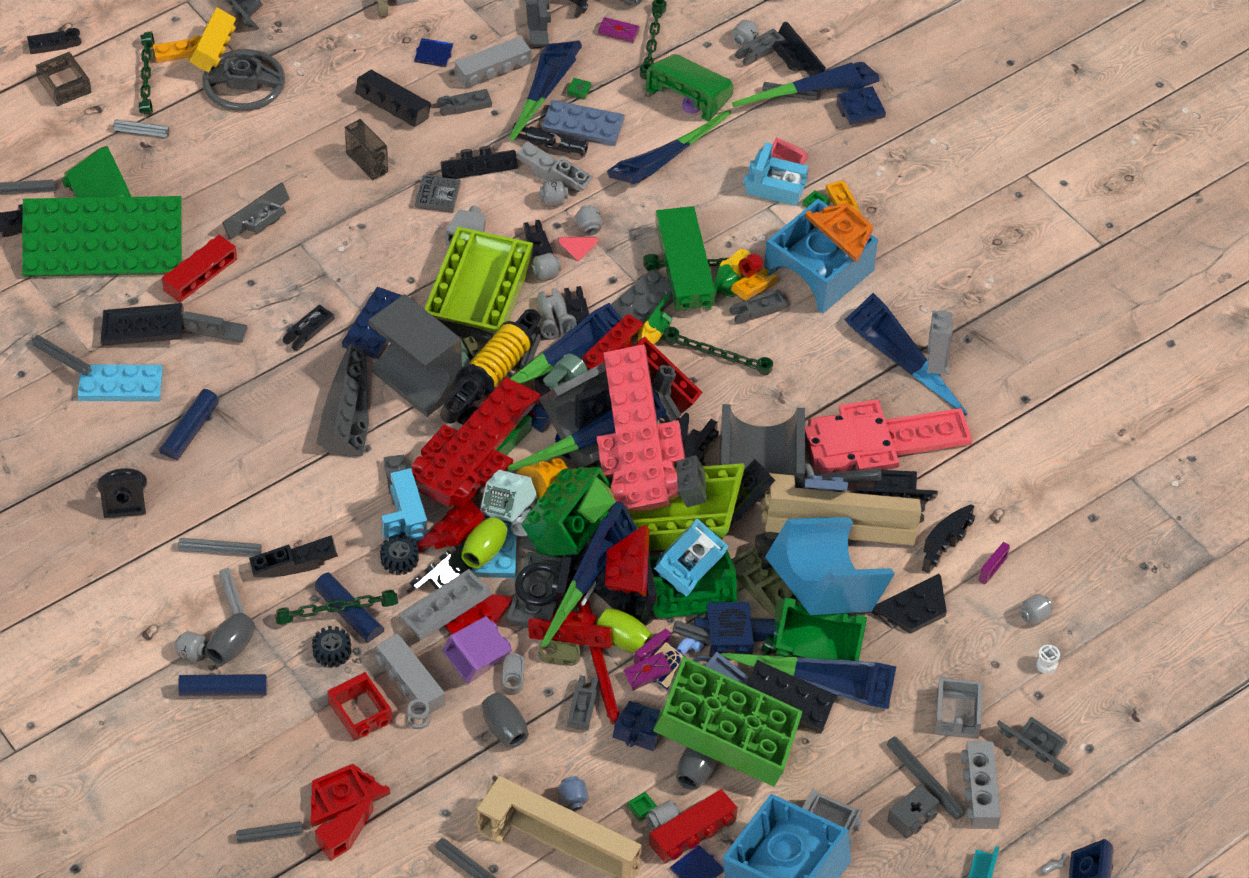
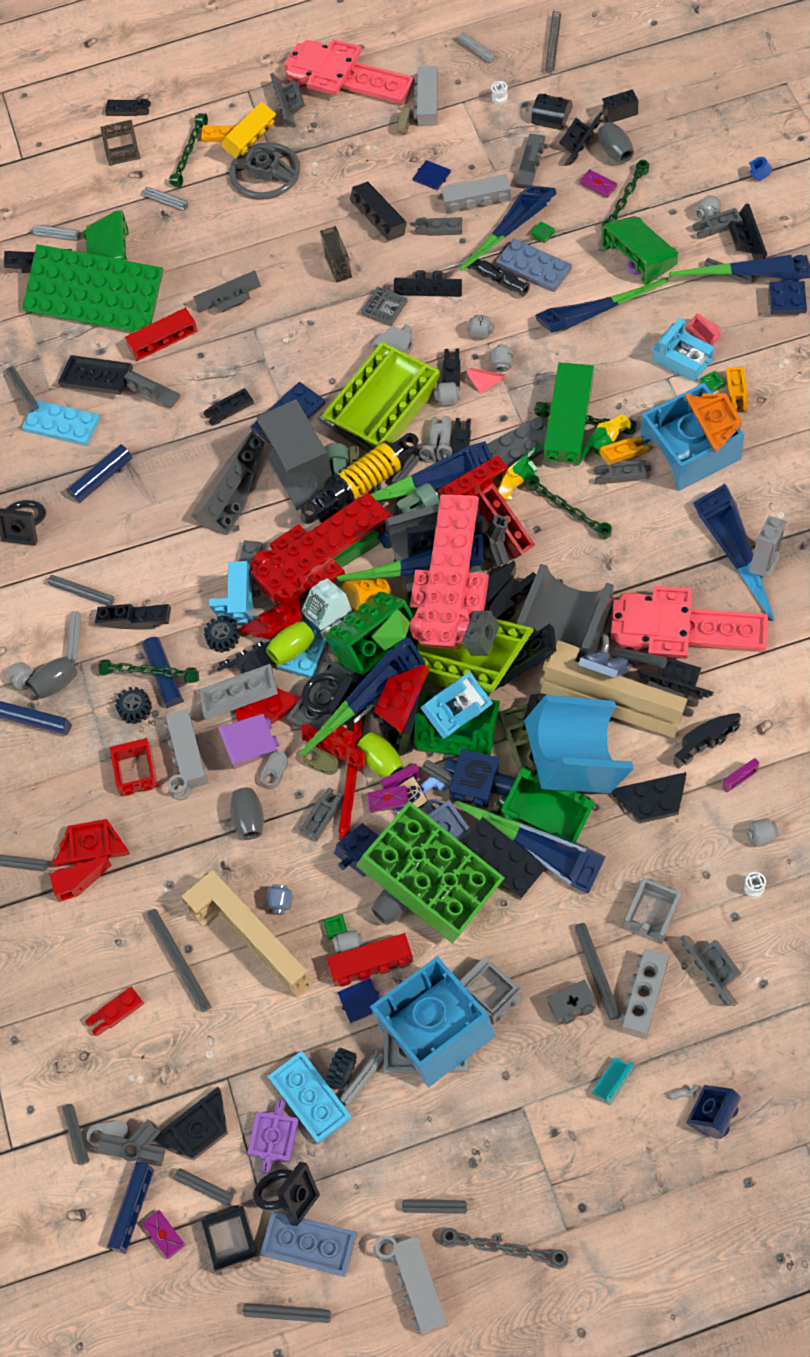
camera: 30 degrees right, 10 degrees up
(552, 169) = (488, 303): light grey slope -> none
(750, 265) = (624, 432): red wheel -> none

